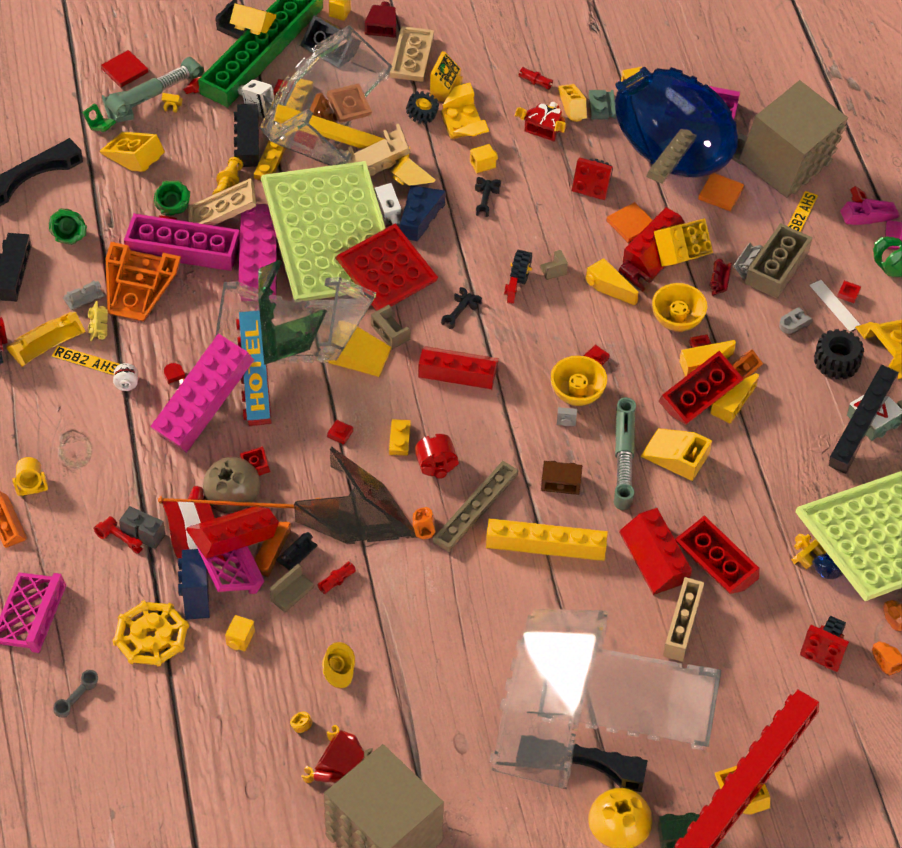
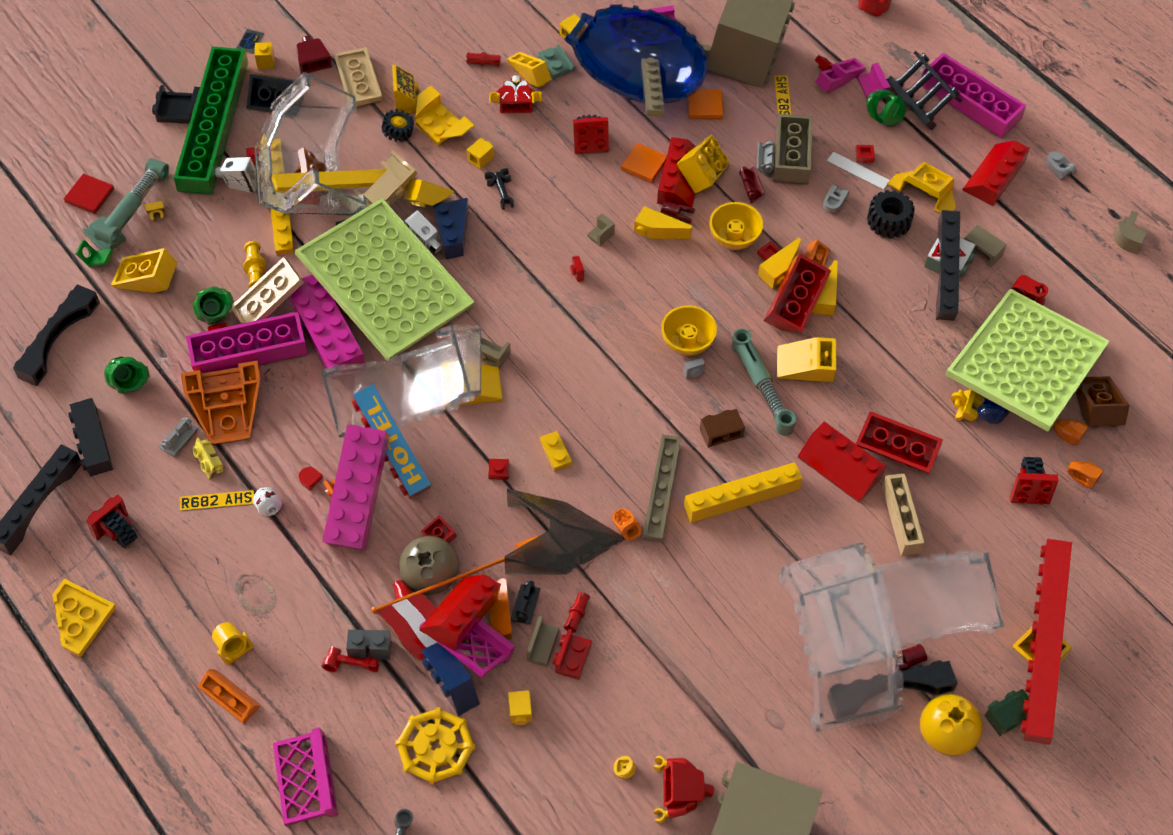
camera: 25 degrees left, 5 degrees up
(45, 337) = (164, 493): yellow windscreen -> none
(192, 86) = (167, 185): red plate -> none
(247, 134) = (248, 214): black brick -> none
(251, 18) = (194, 99): yellow slope -> none
(289, 337) = (412, 394): clear green windscreen -> none
(311, 611) = (572, 655): none -> red bracket
(338, 665) = (629, 697): yellow piece -> none
(349, 103) = (331, 147): nougat plate -> none
(387, 266) = (455, 291): red plate -> none
(436, 455) = (603, 455): red brick -> none
(457, 367) = (571, 361): red slope -> none
(464, 300) = (540, 293): black bar -> none
(521, 266) = (575, 242): black wheel -> none
(598, 354) = (685, 298): red plate -> none
(617, 743) = (913, 656): none -> dark red hinge

